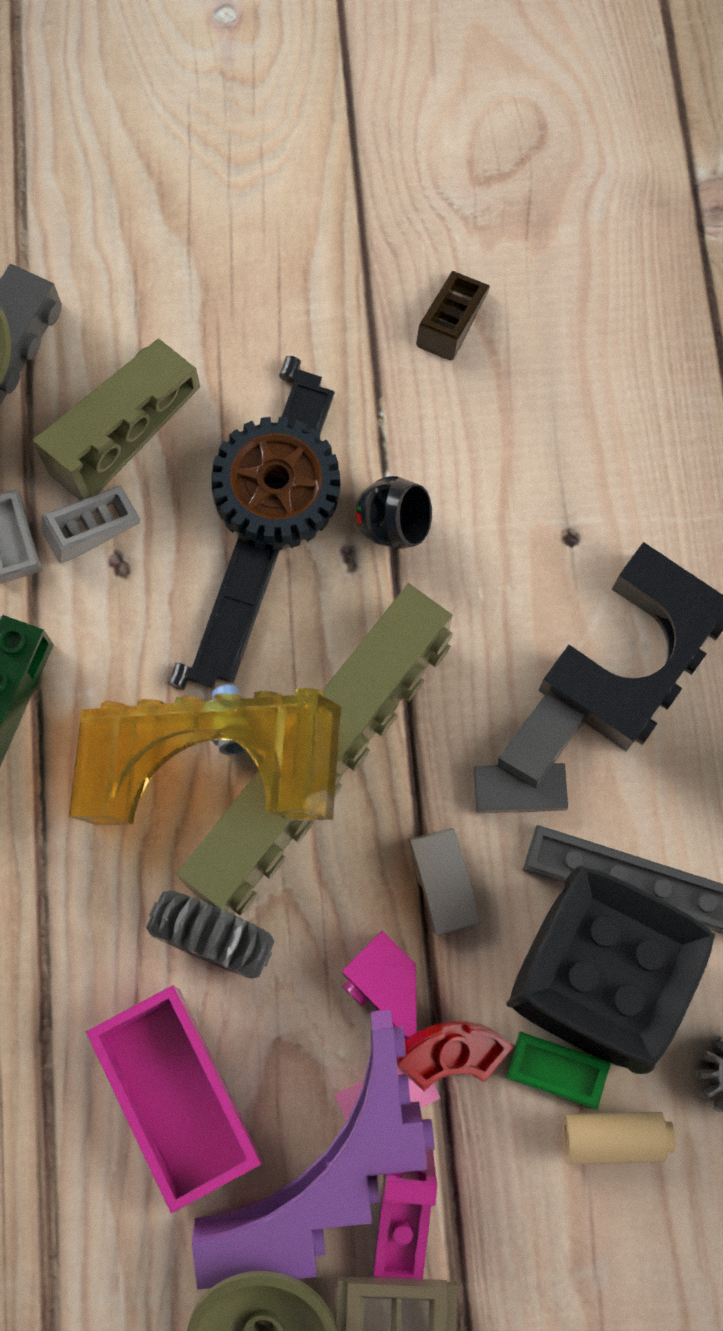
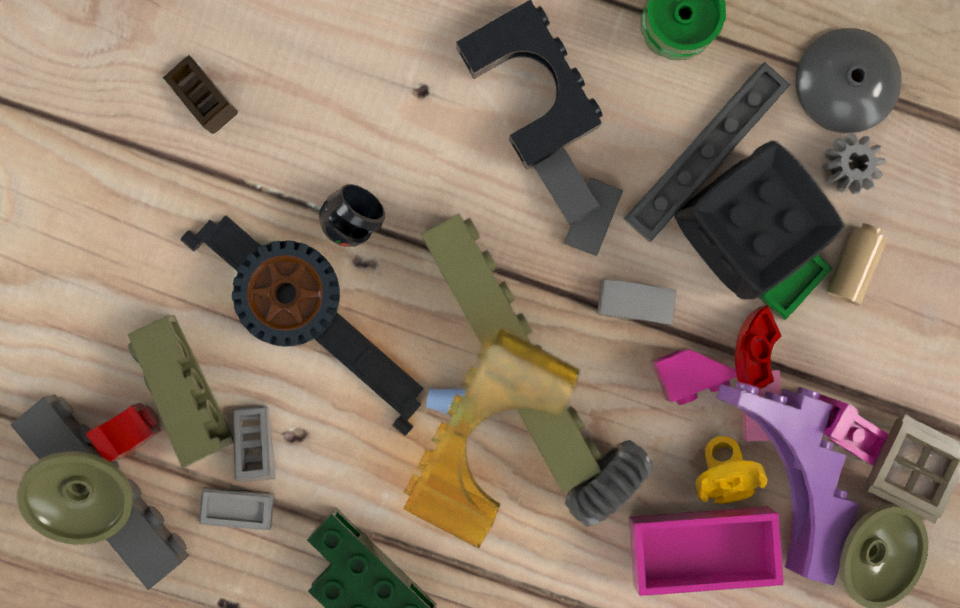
camera: 65 degrees left, 15 degrees up
(45, 377) = (125, 432): none -> red arch
(276, 1089) = (729, 479): none -> yellow tile

